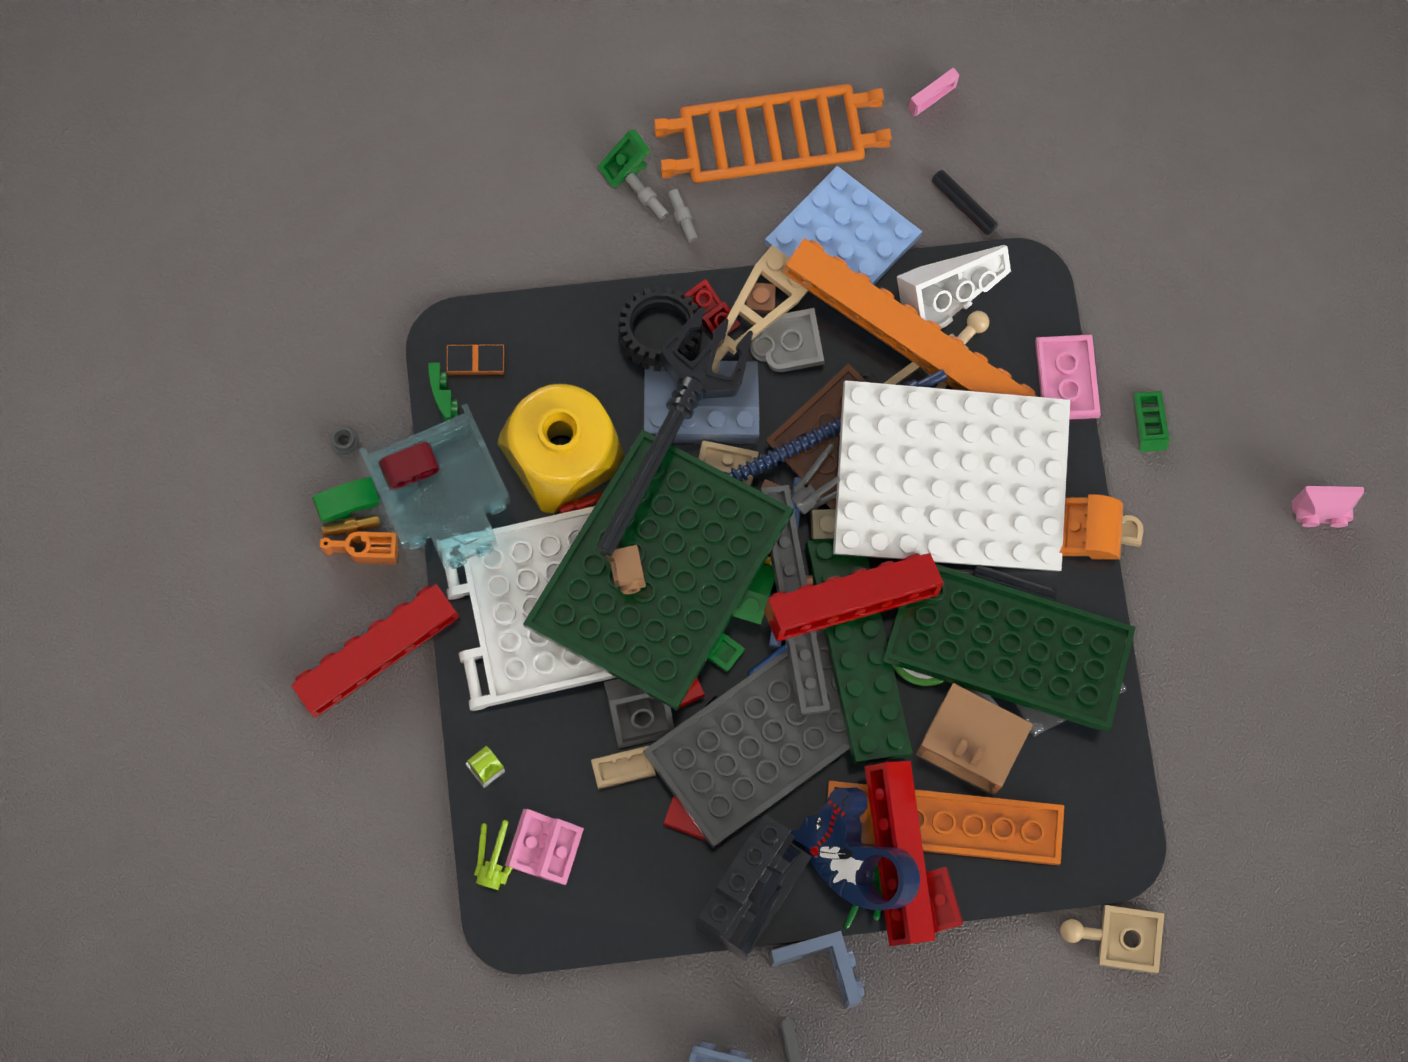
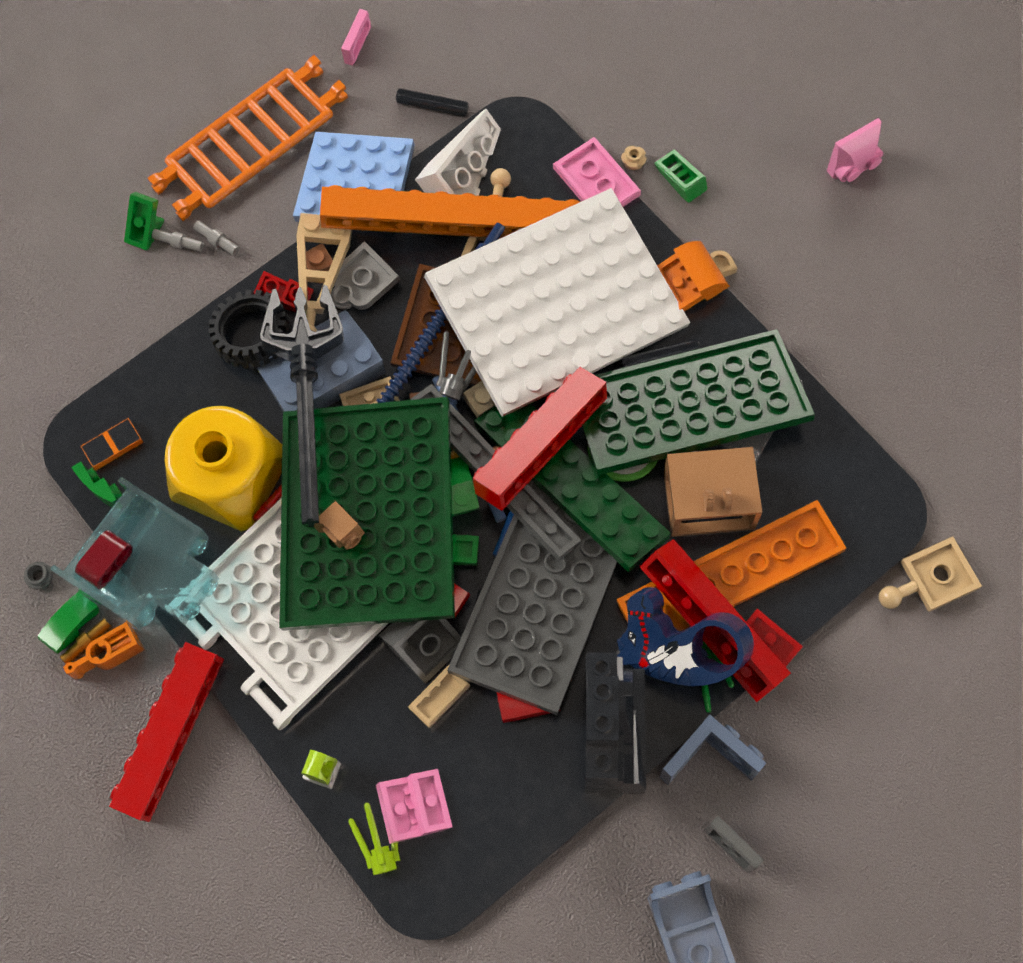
camera: 20 degrees left, 5 degrees down
(1114, 382) = (633, 163): none -> tan plate

